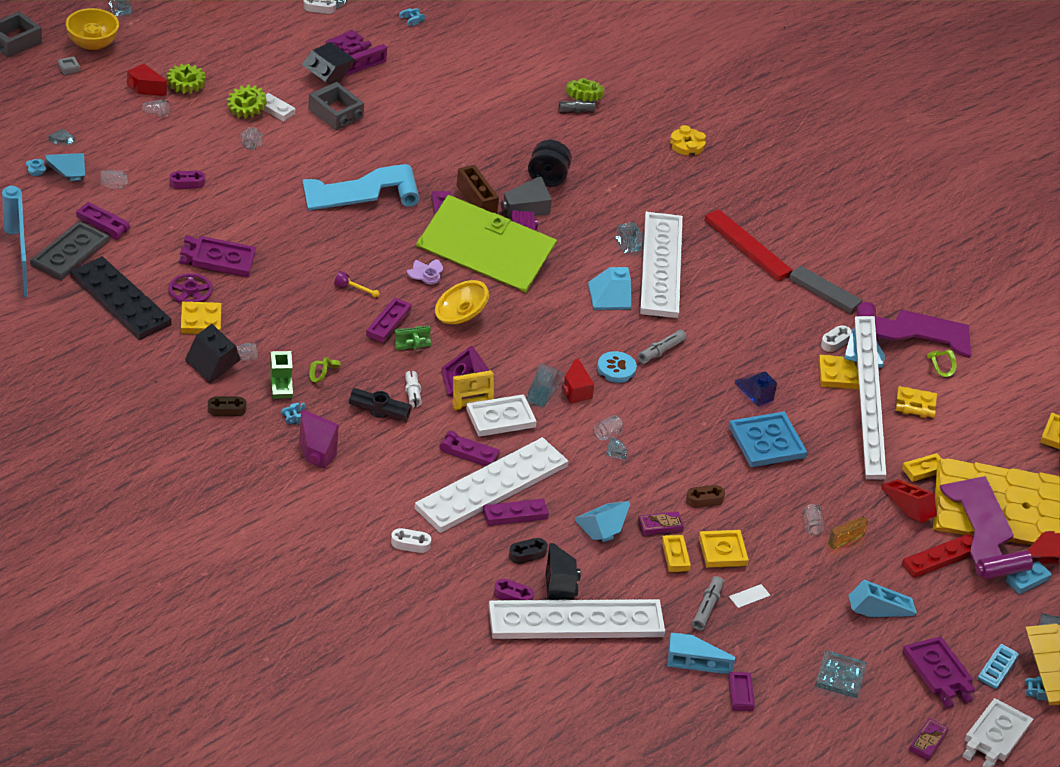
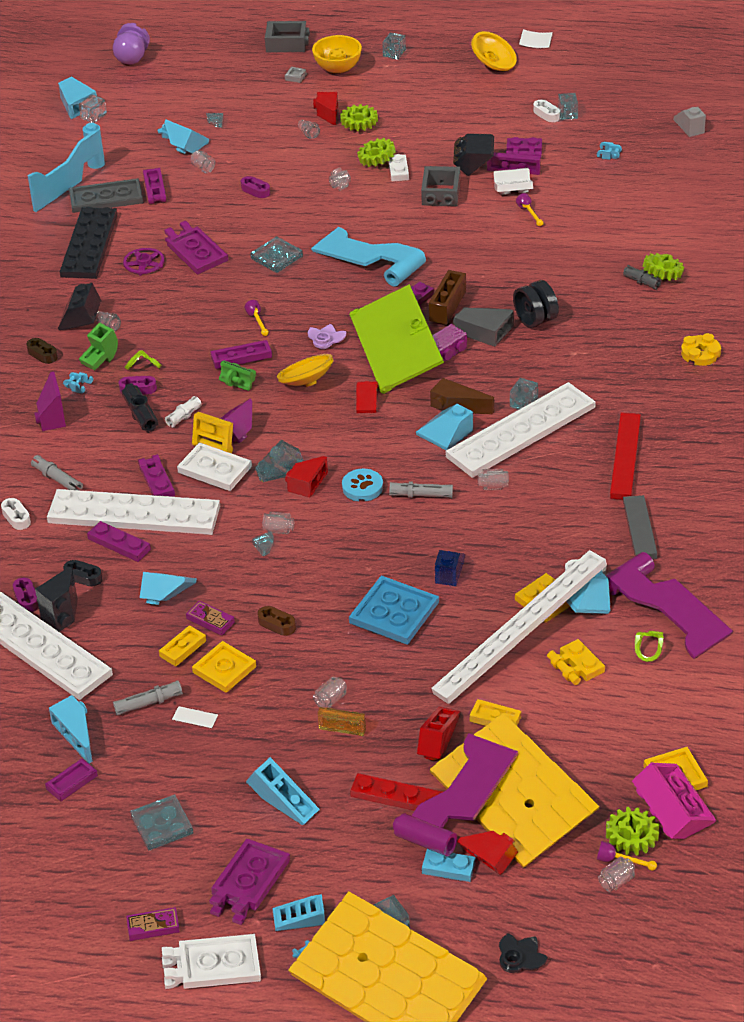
camera: 55 degrees right, 0 degrees up
(199, 315) = (119, 283): yellow plate -> none
(293, 226) = (276, 254): none -> clear light blue plate
(342, 390) = (146, 384): none -> magenta beam
(384, 76) = (512, 180): none -> white bracket
(401, 492) = (50, 470): none -> light grey pin
(414, 89) = (524, 202): none -> hinge
(524, 299) = (366, 397): none -> red slope
(586, 266) = (448, 393): none -> reddish brown slope
(697, 310) = (493, 479): none -> clear brick

